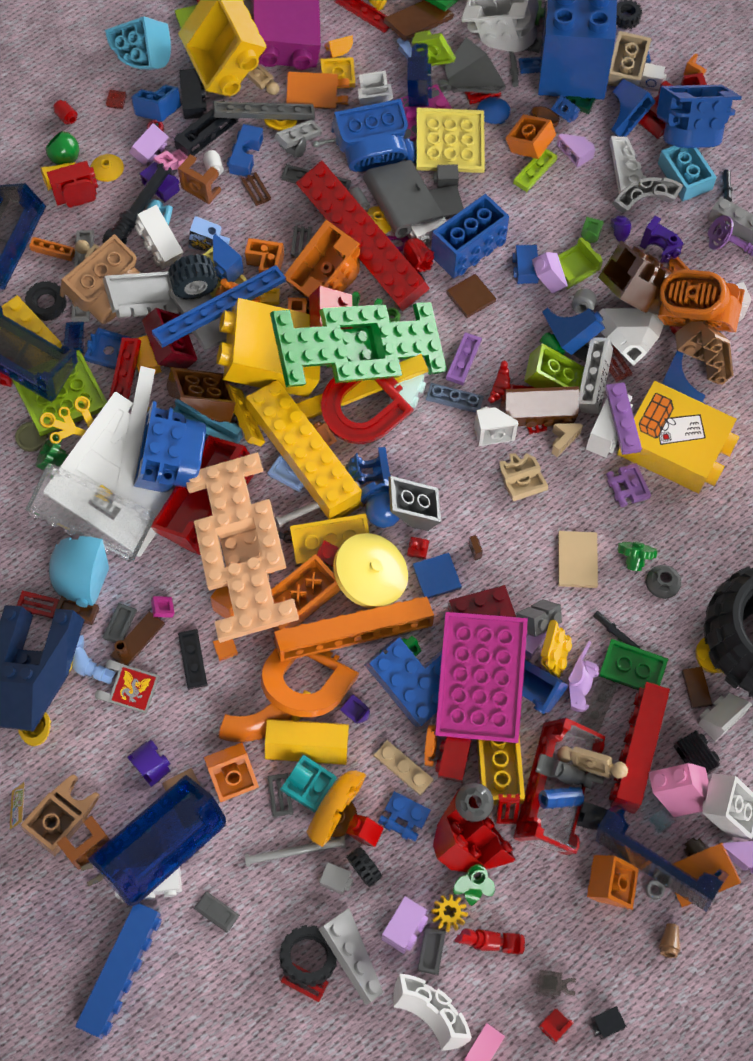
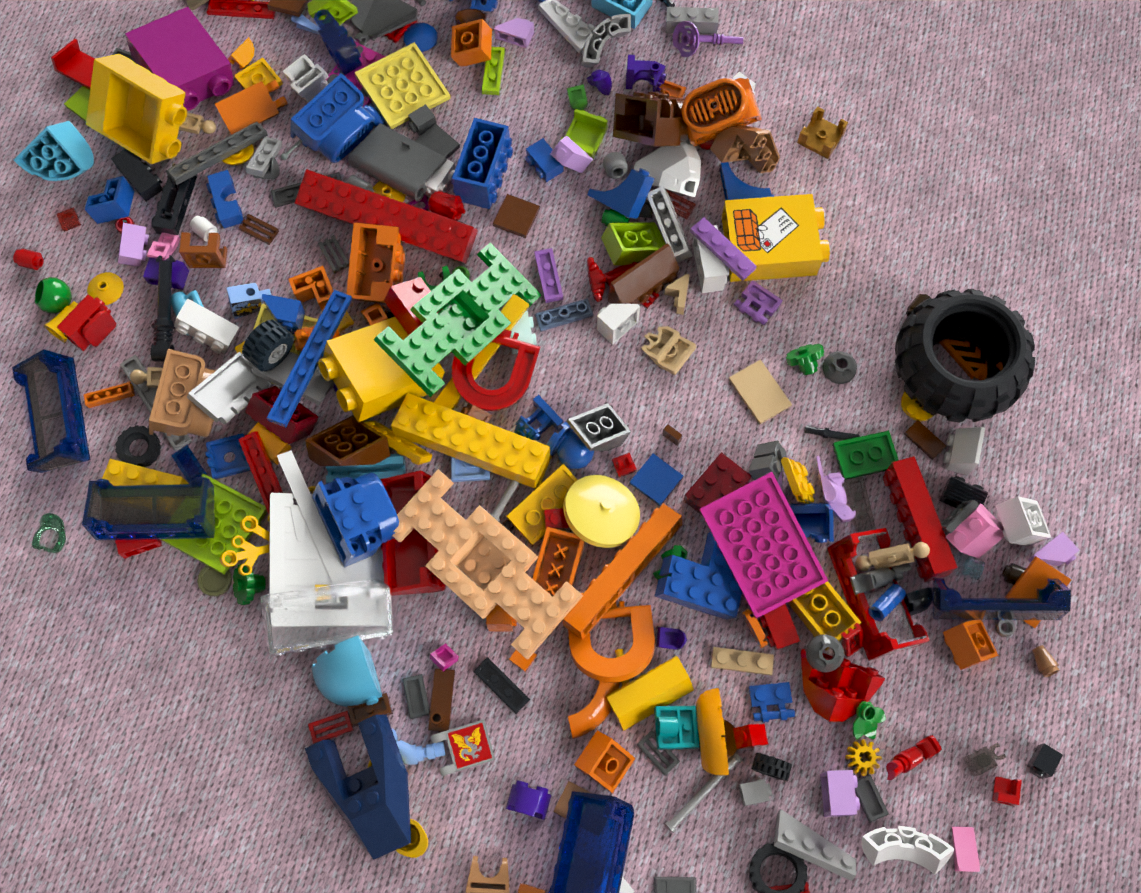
camera: 30 degrees left, 5 degrees up
(673, 762) = (958, 516): none -> dark grey tile

